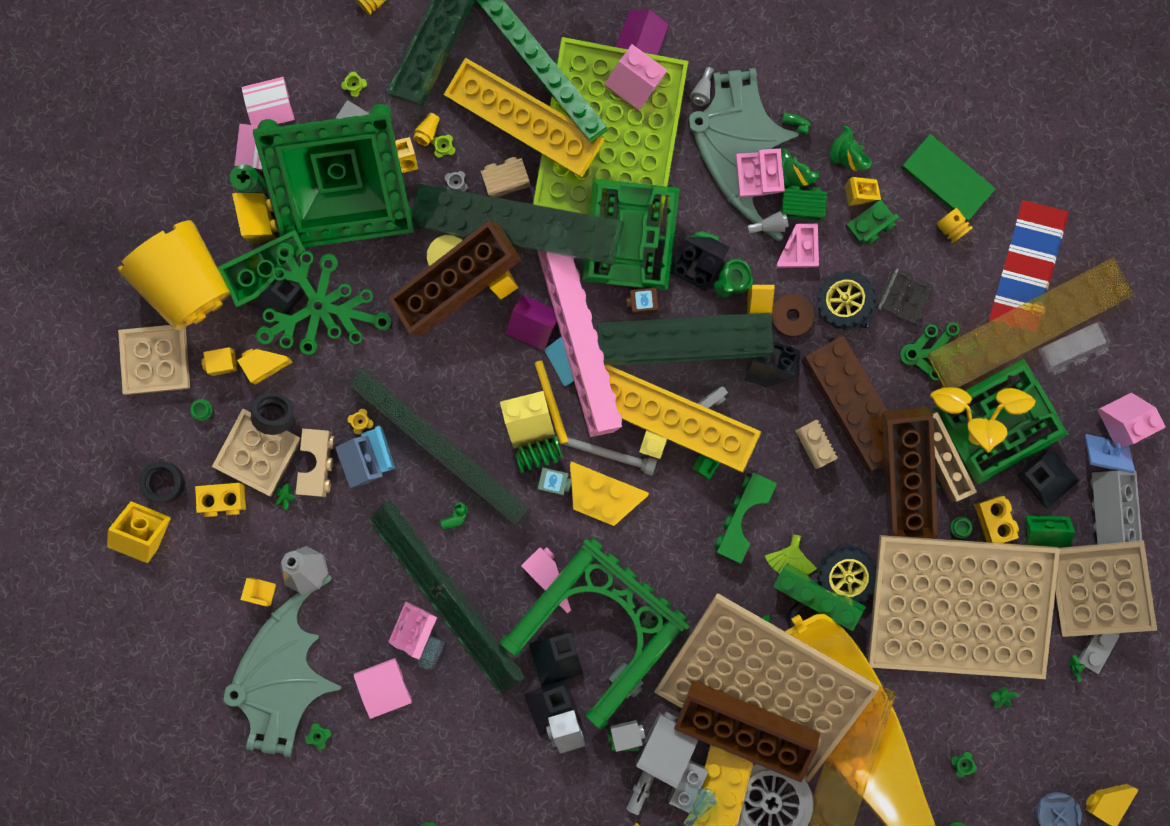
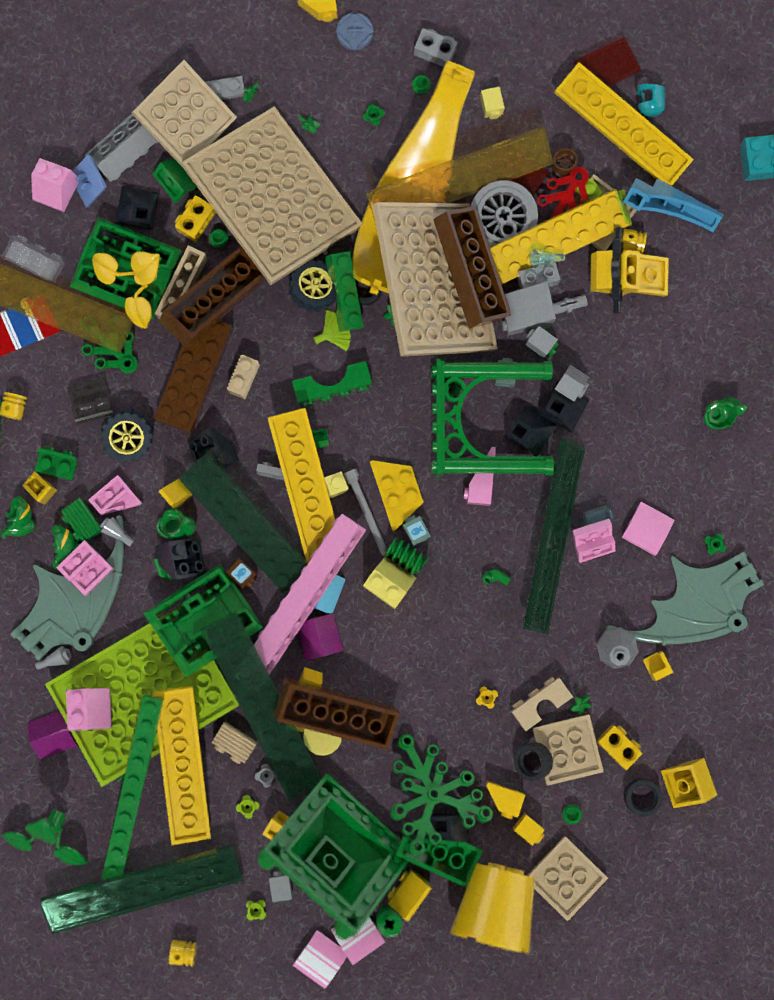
camera: 135 degrees left, 0 degrees up
(358, 461) = (515, 673): sand blue brick -> none
(380, 448) = (496, 668): medium azure panel -> none
(426, 130) = (246, 828): yellow cone -> none
(439, 446) = (458, 628): clear green brick -> none
(551, 402) = (366, 574): yellow bar -> none
(796, 120) = (24, 573): green arm -> none
(801, 306) = (158, 457): reddish brown tile -> none

